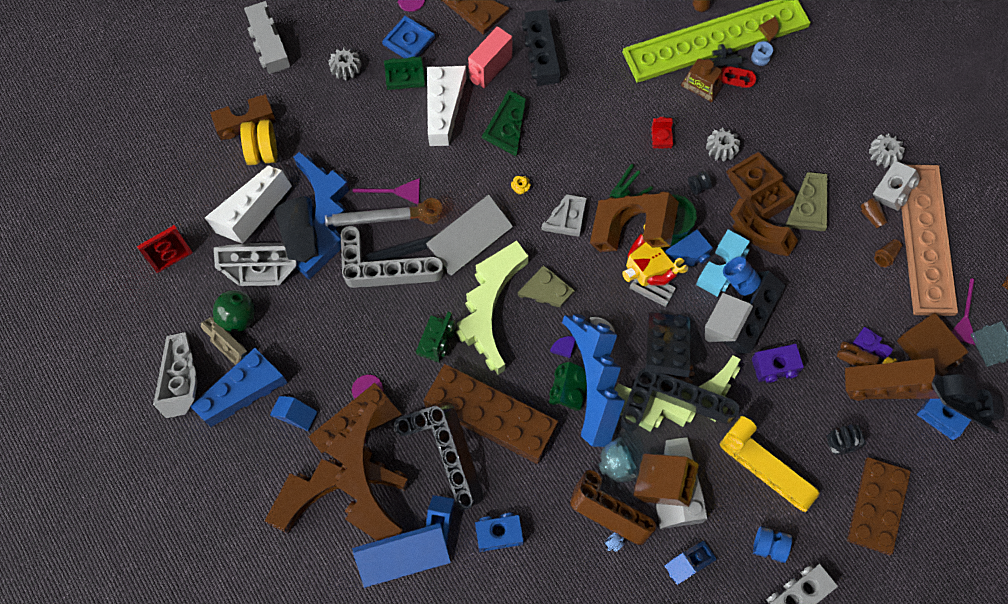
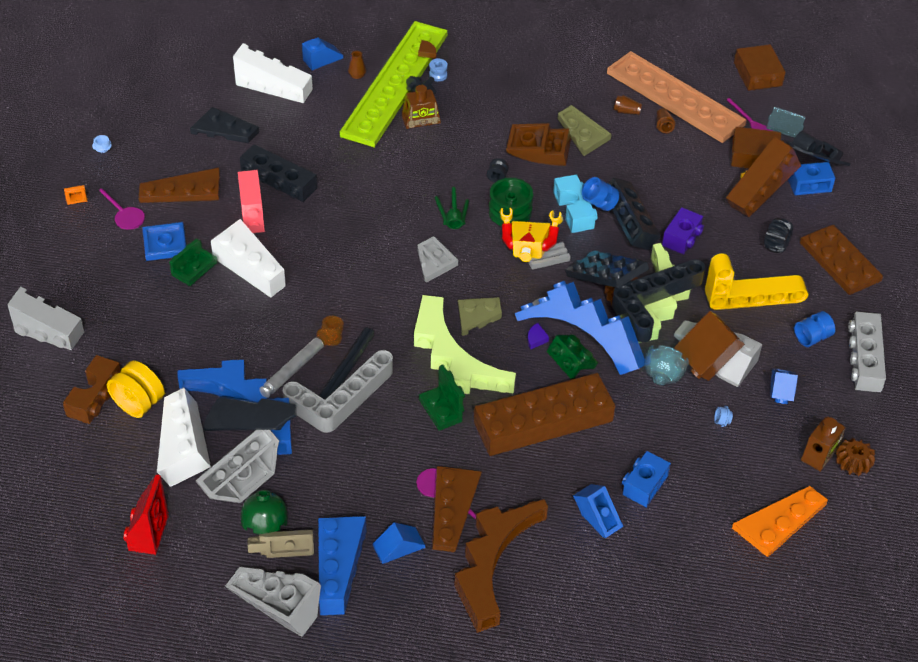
camera: 50 degrees left, 20 degrees down
(345, 63) = (133, 292): light grey gear -> none
(366, 511) = (510, 527): reddish brown arch -> none
(401, 555) = (602, 549): blue tile -> none
(408, 191) = (292, 337): magenta piece -> none
(448, 446) = (546, 450): black beam -> none
(469, 235) = (380, 321): light grey tile -> none
(506, 123) = (313, 238): dark green wing -> none
(520, 189) = (374, 266): yellow plate -> none
(609, 511) = (697, 396): reddish brown beam -> none
(614, 213) = (467, 225): reddish brown arch -> none
(662, 132) = (432, 163): red bracket -> none
(691, 249) = (543, 206): blue slope -> none
(723, 144) = (483, 138): light grey gear -> none
(727, 319) = (623, 227): light grey slope -> none
(736, 80) = (444, 96): red beam -> none
(760, 233) = (585, 165): reddish brown arch -> none
(855, 355) = (720, 189): reddish brown hinge -> none
(870, 342) = (719, 178): dark purple plate -> none
(886, 150) = (589, 66): light grey gear -> none
(896, 175) = (623, 67): light grey brick -> none

